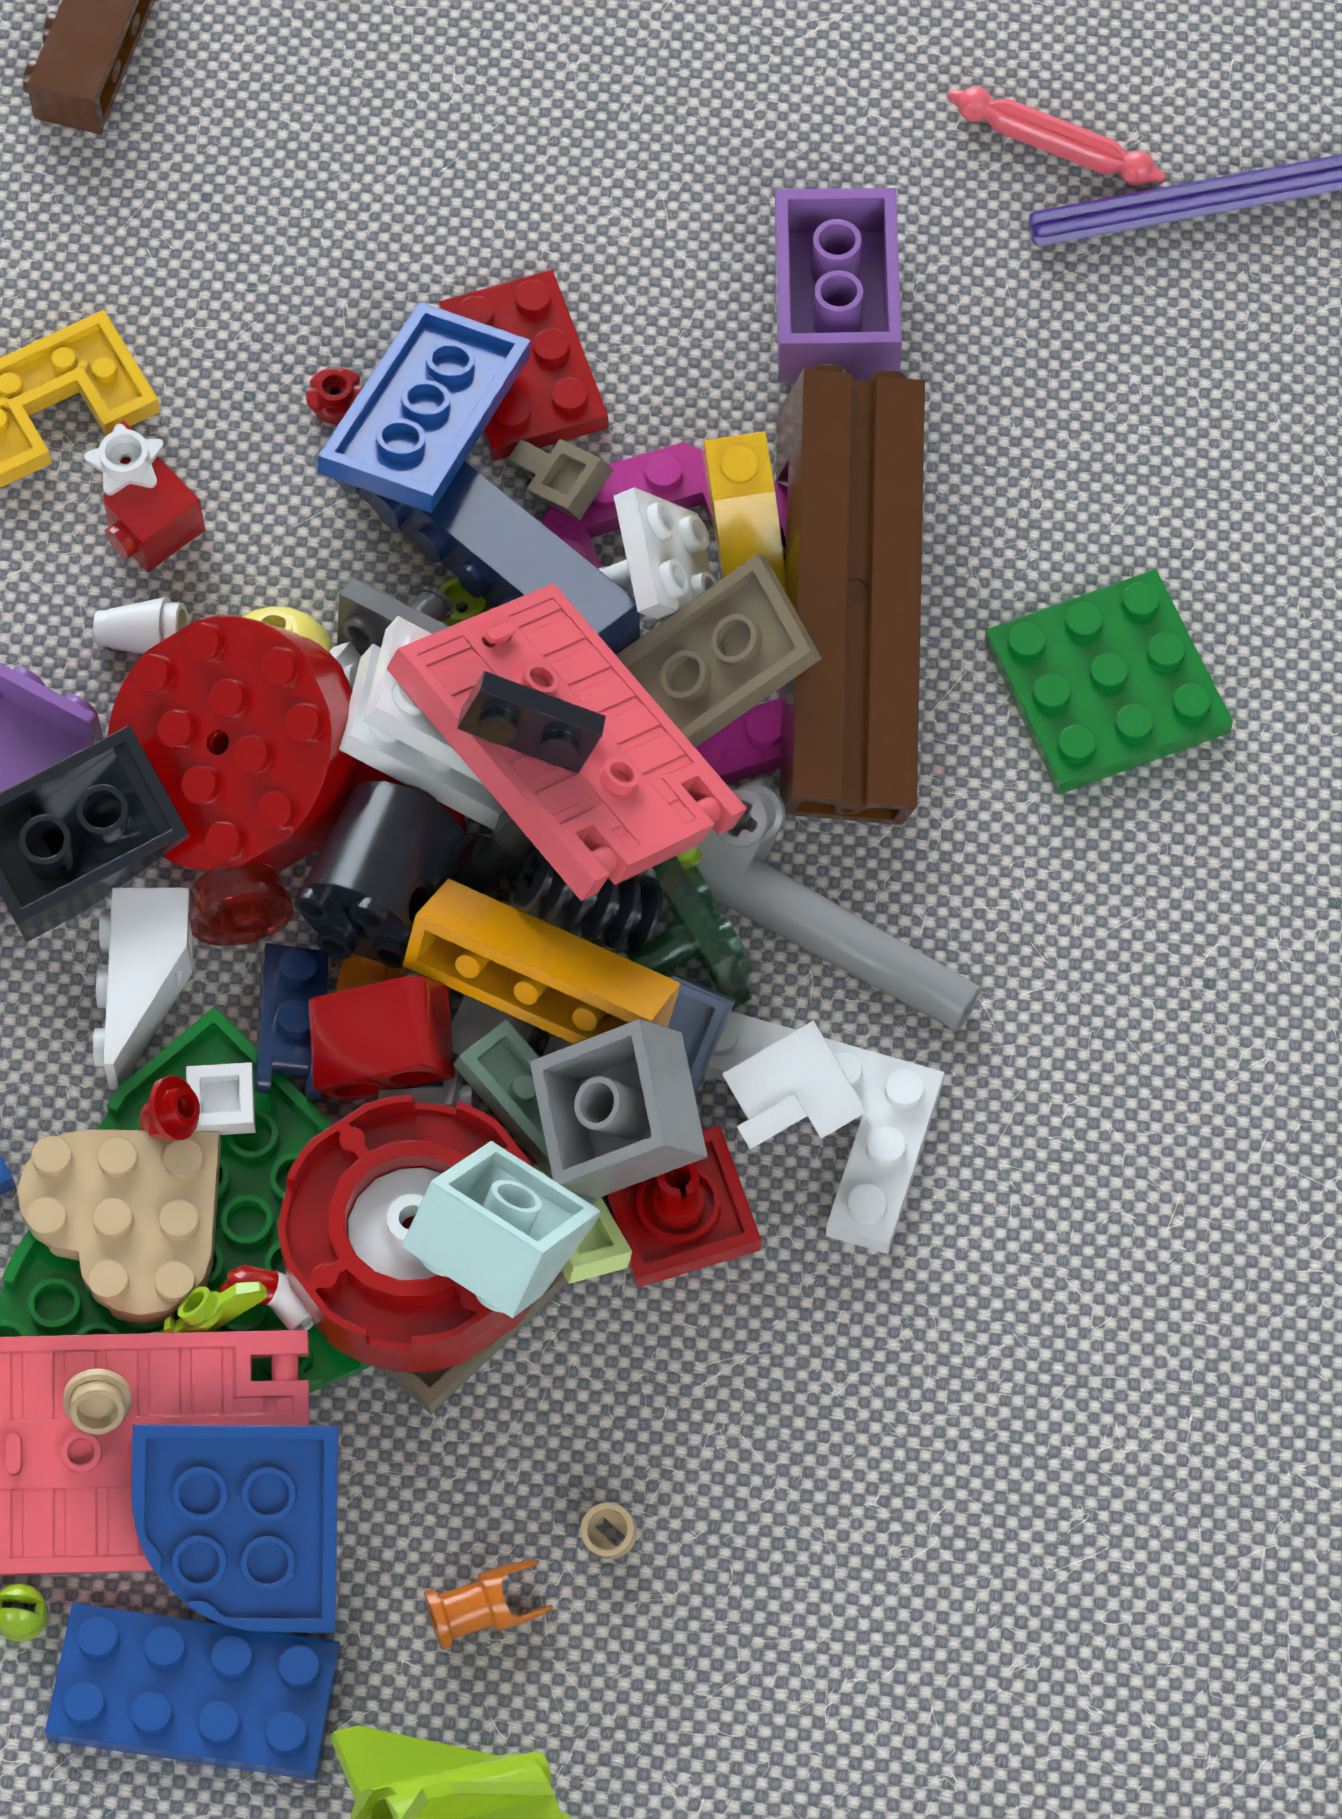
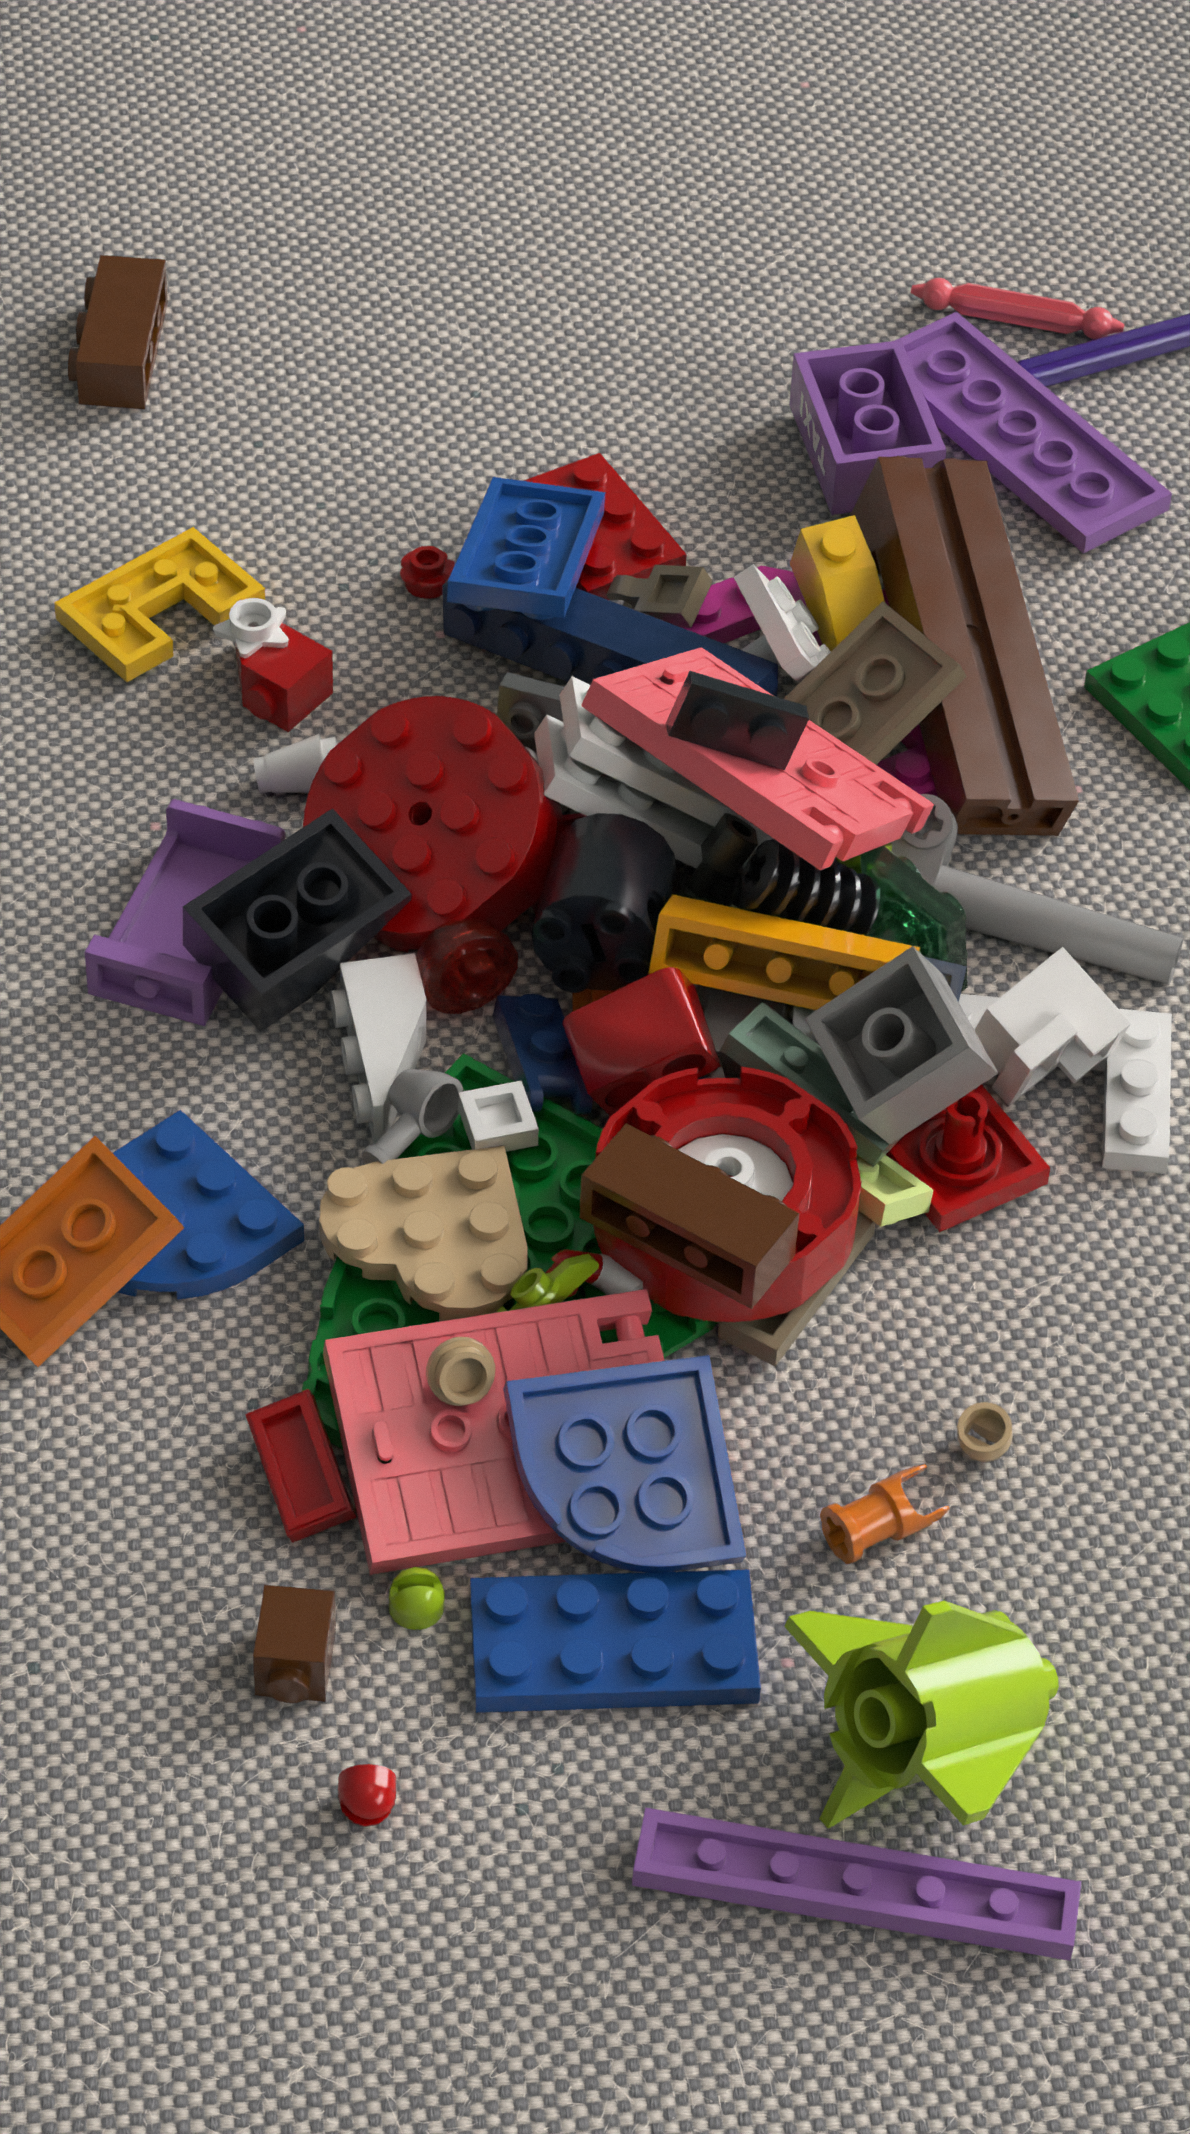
camera: 15 degrees left, 15 degrees down
(146, 1060) = (426, 1107): none -> light grey bar
(171, 1110) = (457, 1125): red plate -> none
(348, 1278) = (689, 1215): none -> reddish brown brick
(498, 1228) = (821, 1155): light aqua slope -> none
(1010, 307) = (1030, 436): none -> medium lavender plate

